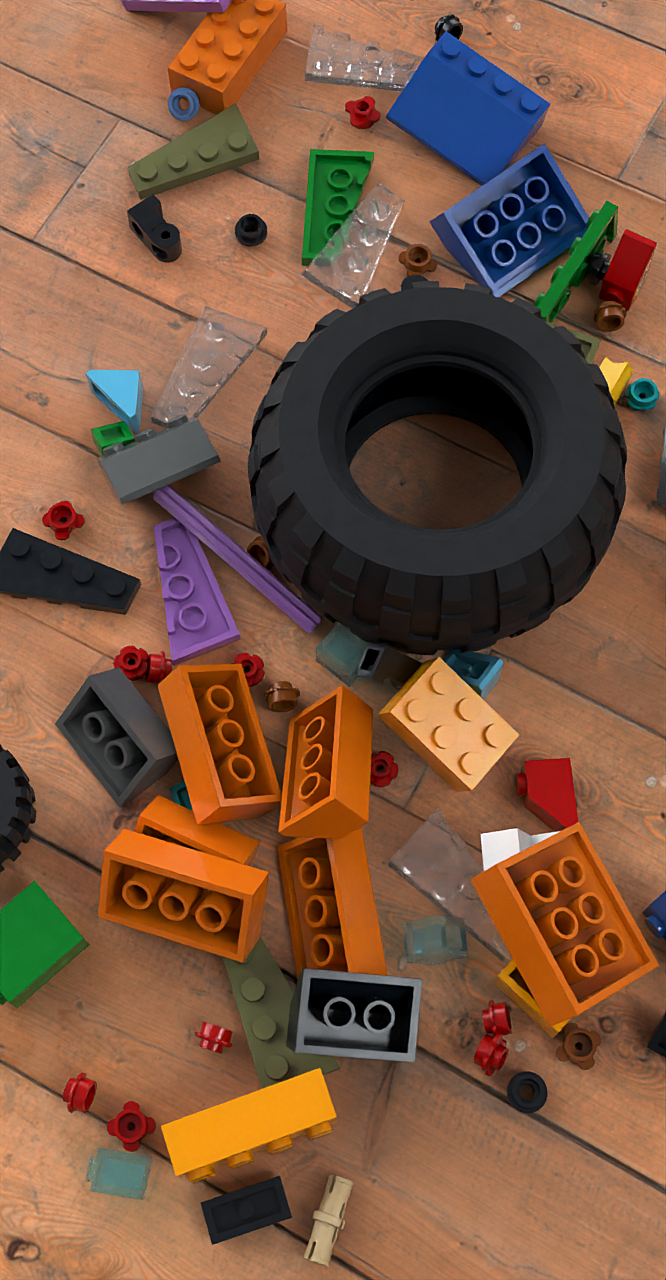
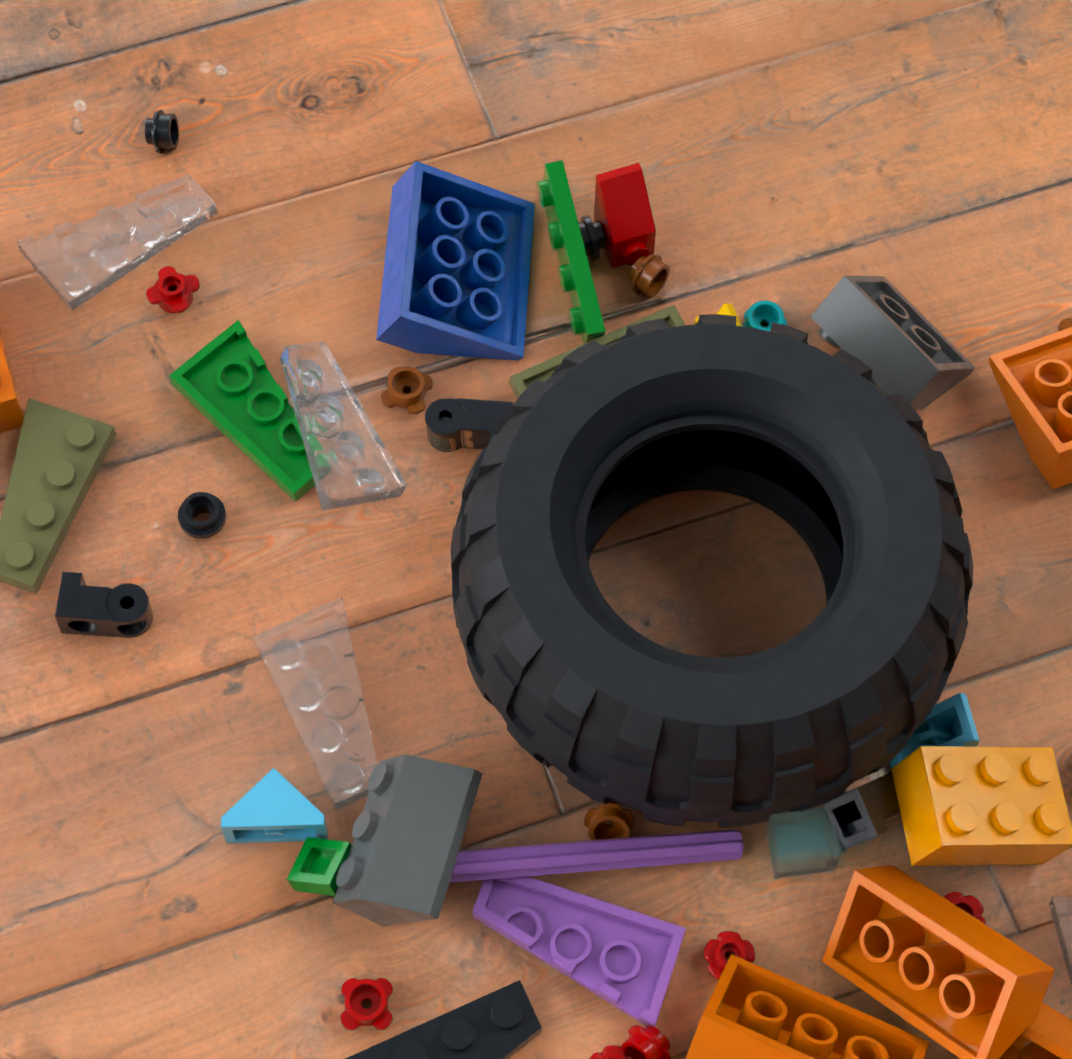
camera: 50 degrees left, 5 degrees down
(282, 697) = (793, 946): dark orange plate -> none
(468, 110) = (288, 195): blue slope -> none

